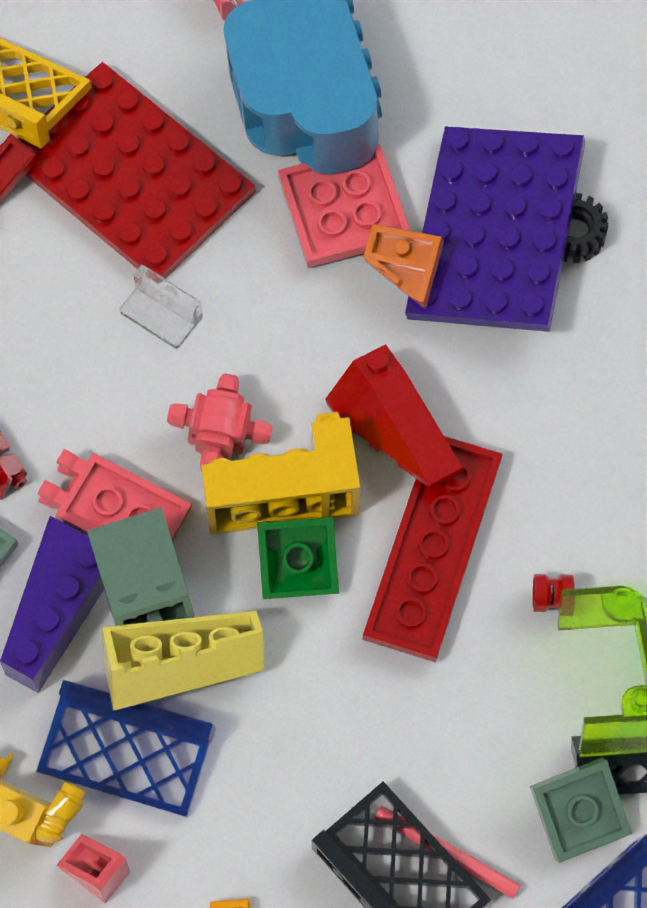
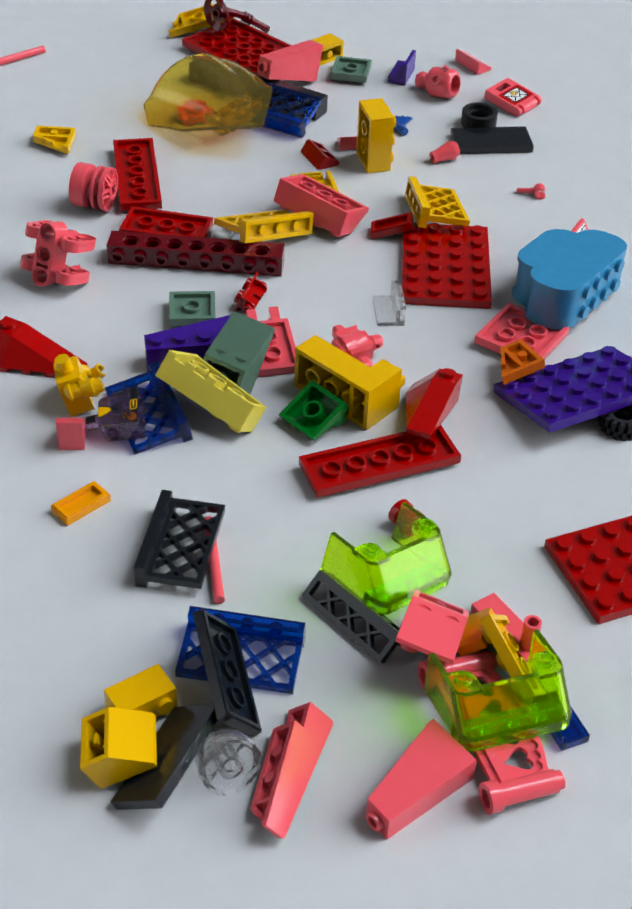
camera: 50 degrees right, 25 degrees down
(128, 796) = (120, 416): none -> clear purple torso
(580, 810) = (291, 591): sand green plate -> none

